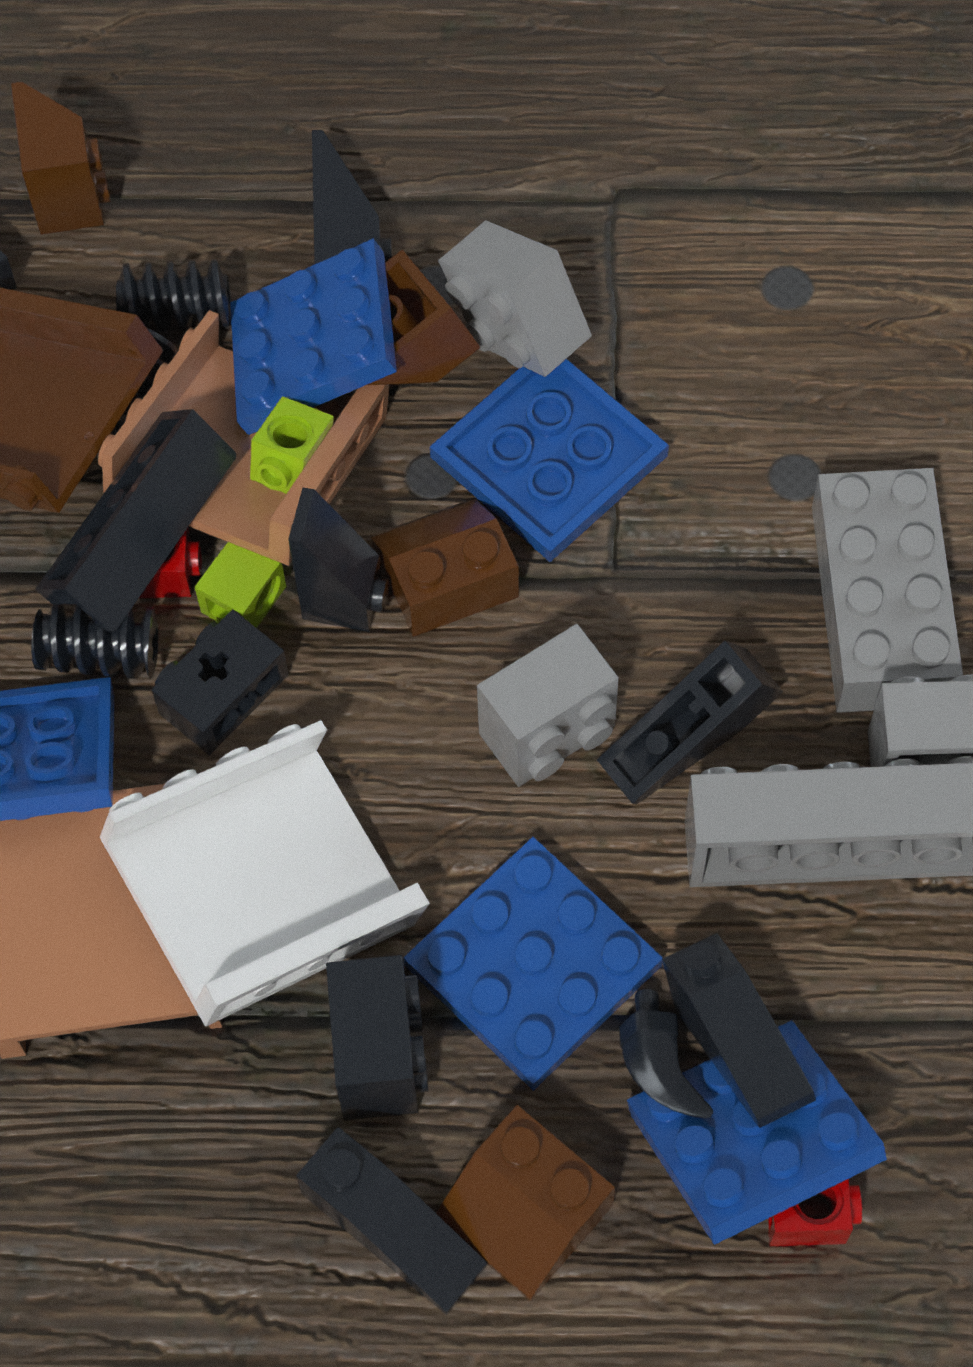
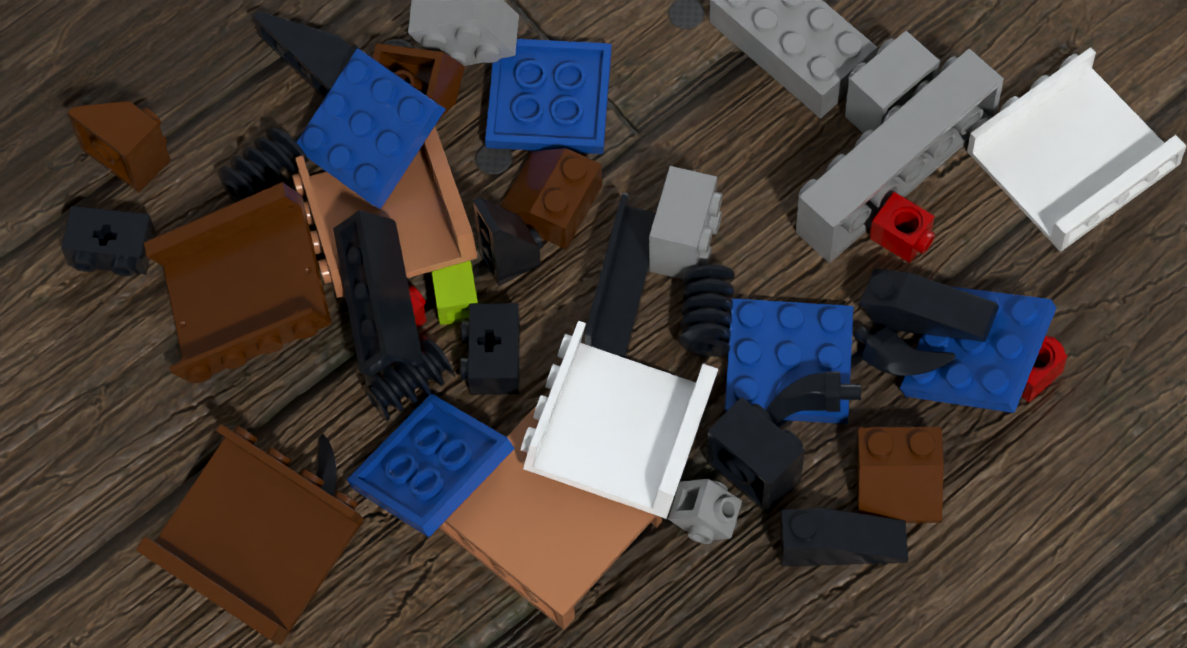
camera: 40 degrees left, 0 degrees up
(264, 1055) = (705, 510): none -> light grey brick
(287, 443) = (419, 194): lime brick -> none
(417, 720) = (621, 281): none -> black panel
(486, 823) = (706, 310): none -> black piece
(510, 1020) = (813, 393): none -> black bar
(690, 721) = (757, 180): black slope -> none
(810, 889) = (902, 212): none -> red brick

